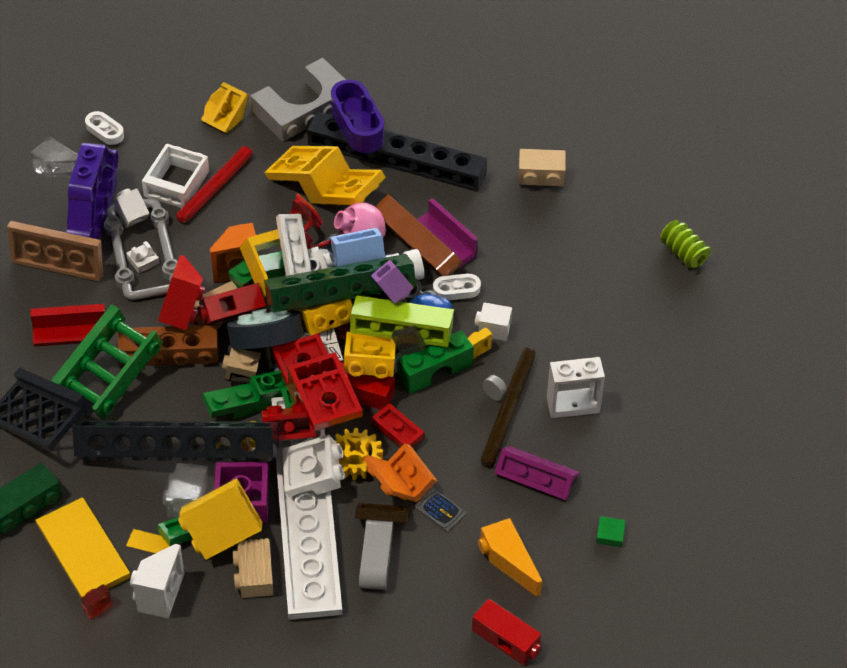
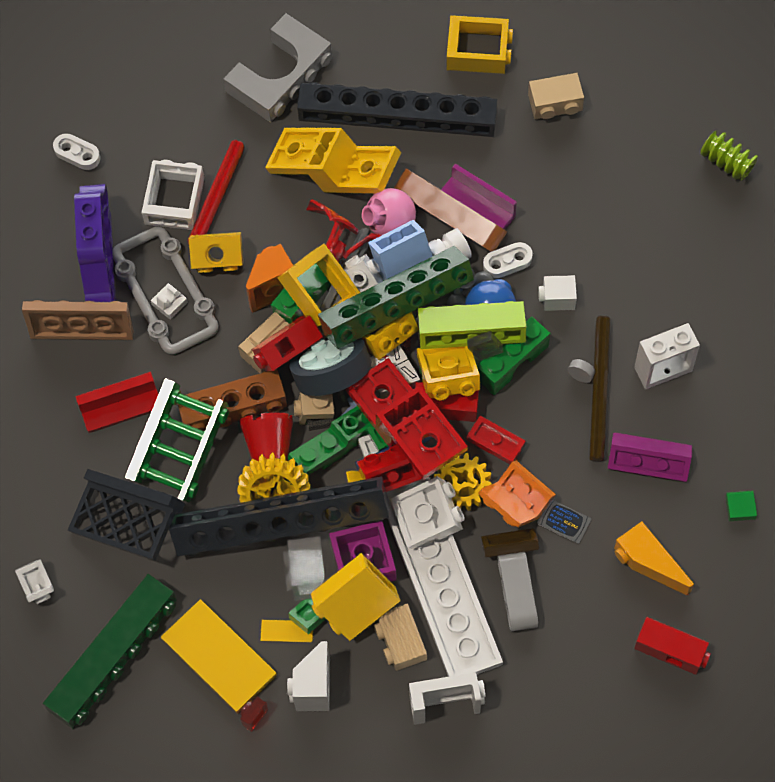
camera: 10 degrees left, 15 degrees up
(53, 159) = (39, 204): clear slope -> none
(130, 207) = (139, 246): white brick -> none
(160, 409) = (264, 474): none -> yellow gear
(181, 295) = (231, 345): red slope -> none
(185, 217) = (229, 243): none -> yellow brick
(188, 380) = (268, 435): none -> red cone
(225, 108) = (197, 97): yellow slope -> none
(276, 618) = (445, 691): none -> white panel
(293, 243) = (335, 265): white tile -> none
(357, 116) = (348, 82): dark purple plant -> none
(392, 282) = (453, 287): medium lavender brick -> none
(481, 341) = (551, 319): yellow plate -> none
(482, 129) = (478, 62): none -> yellow window

